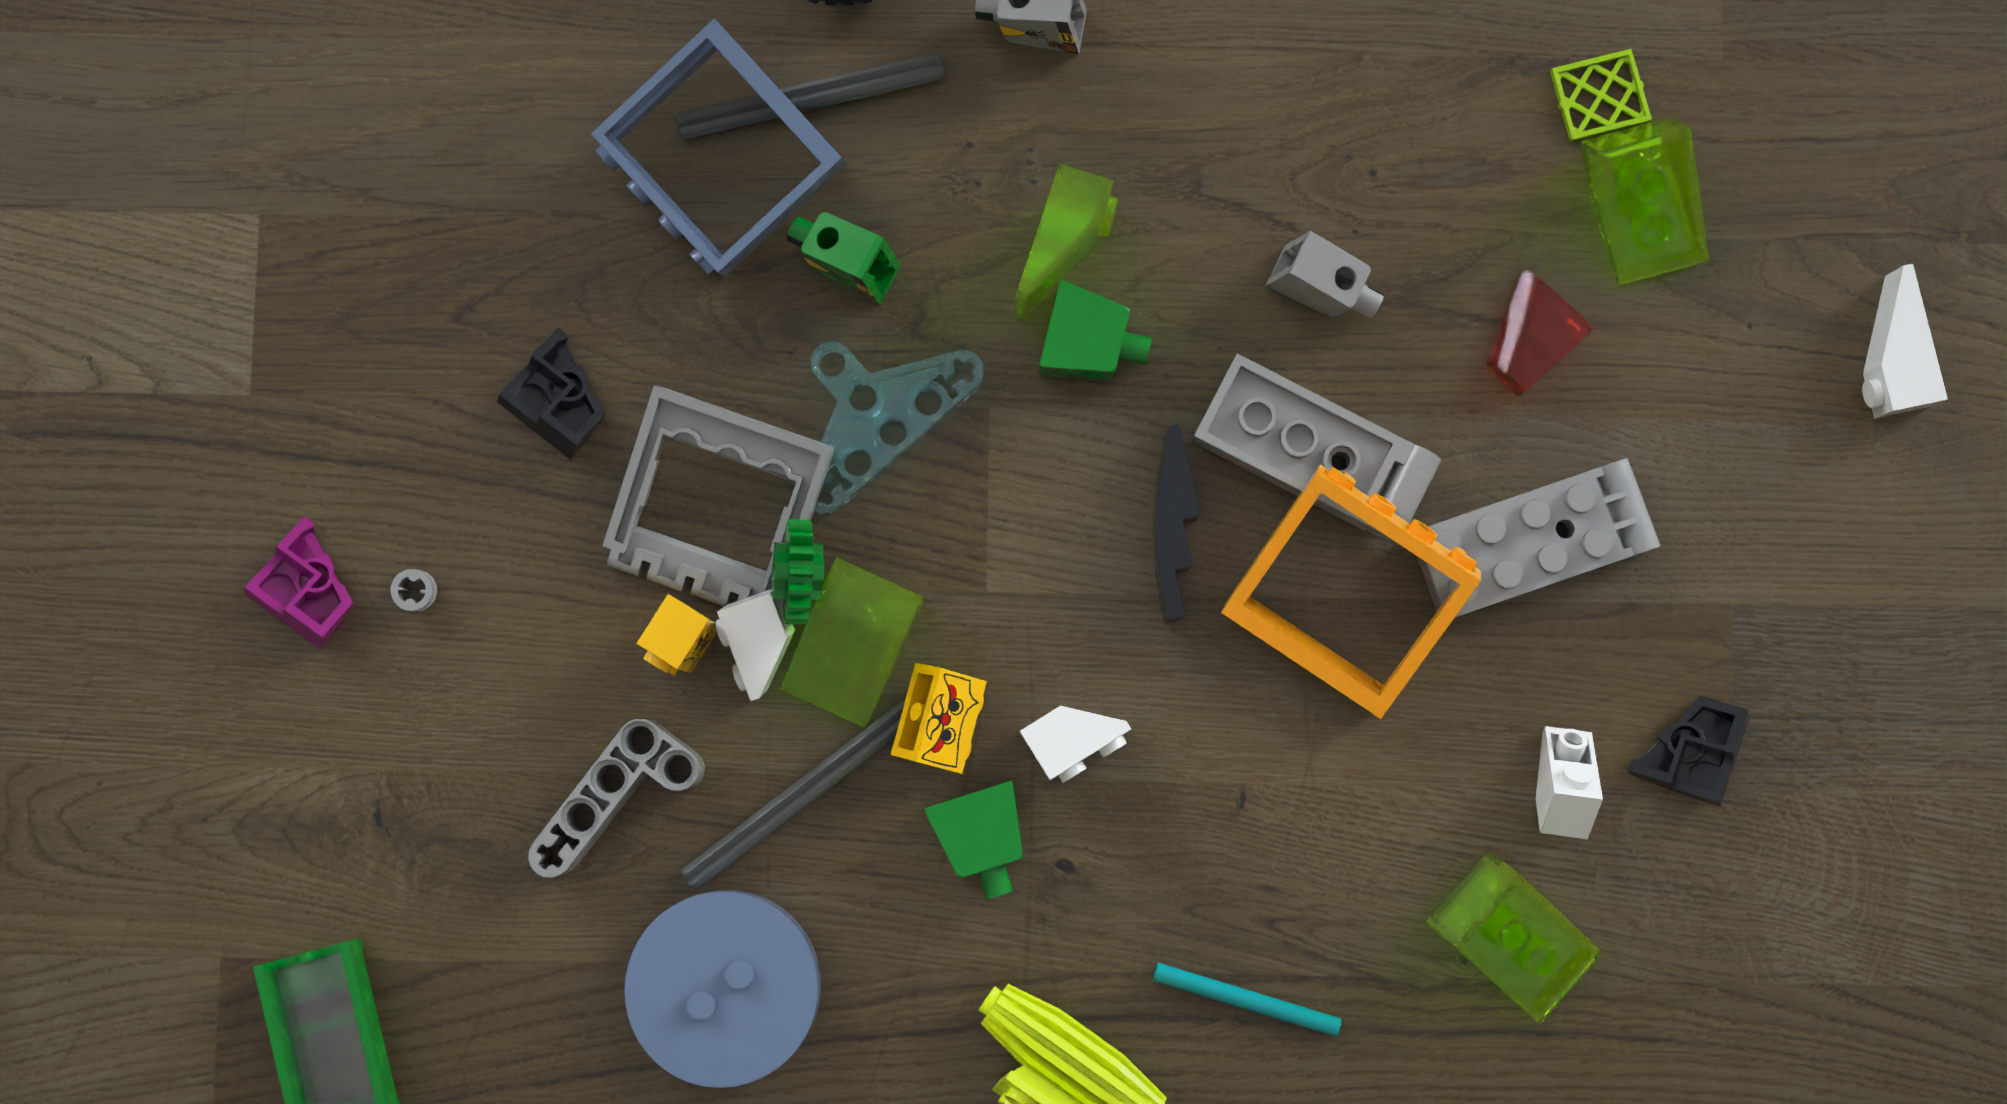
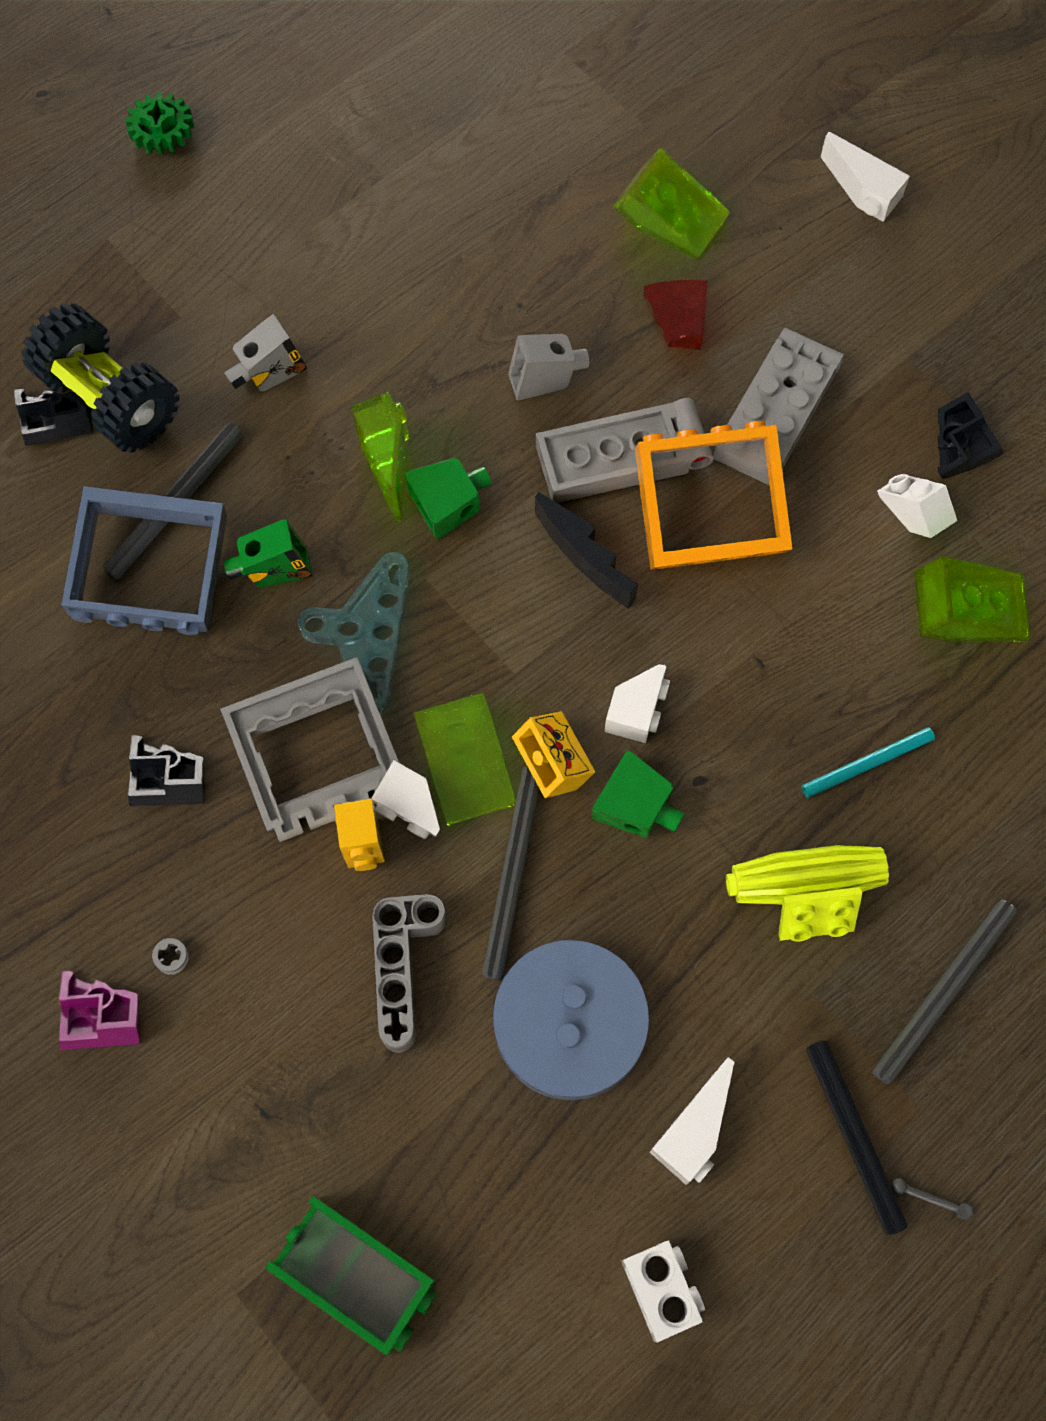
camera: 40 degrees left, 15 degrees down
(797, 571) = (399, 732): green gear -> none
(1565, 103) = (582, 172): lime window -> none

